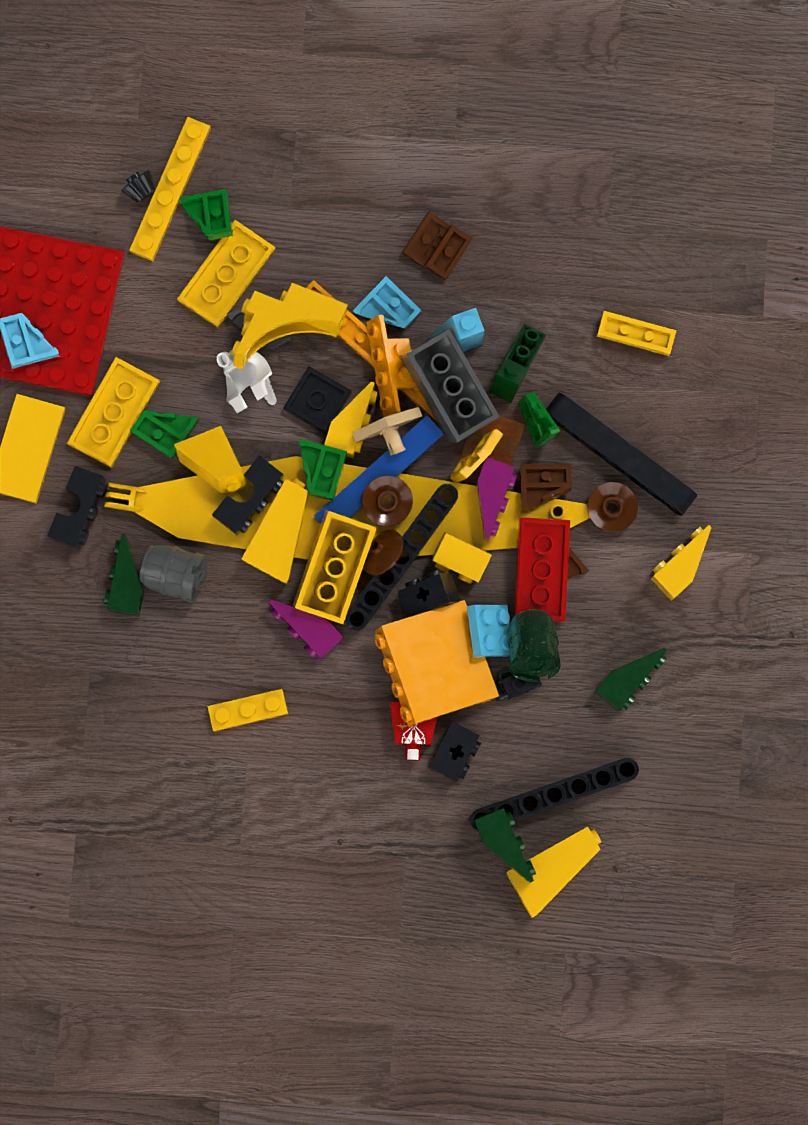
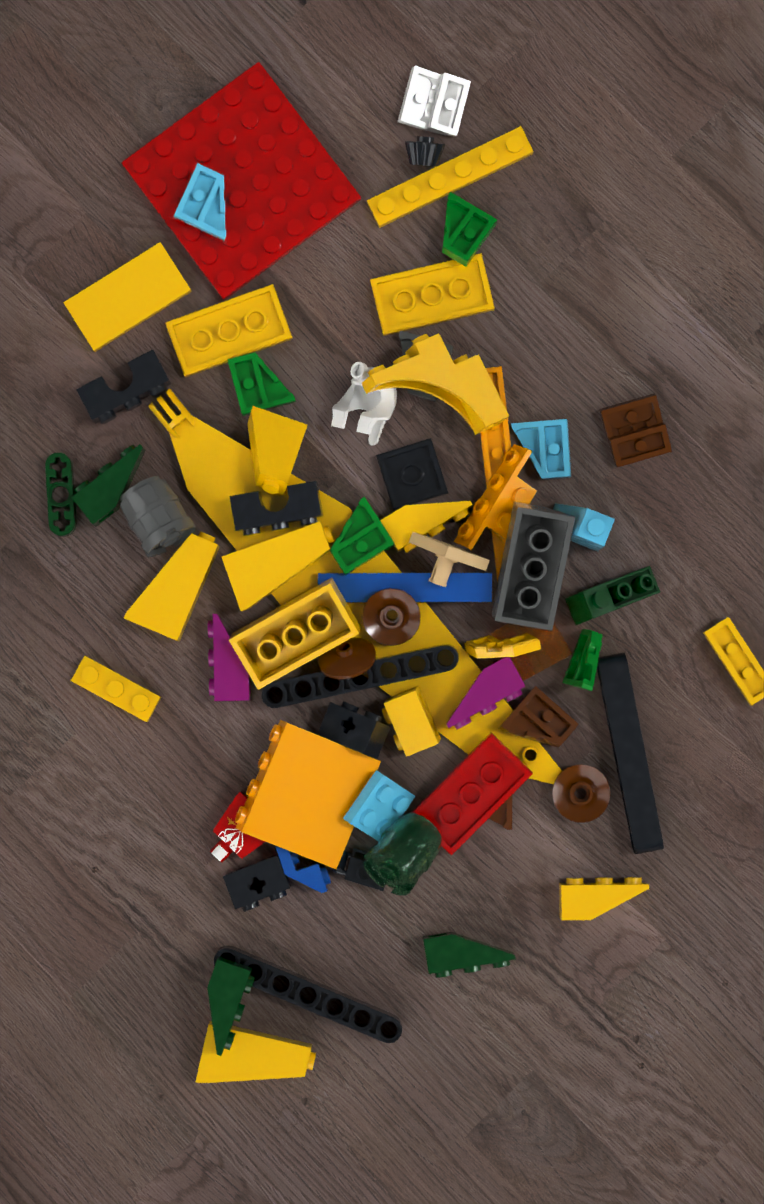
camera: 45 degrees right, 5 degrees up
(105, 633) = (66, 473): none -> dark green beam
(116, 150) = (434, 101): none -> white slope
(229, 611) = (175, 590): none -> yellow slope
(486, 716) = (310, 875): none -> blue slope

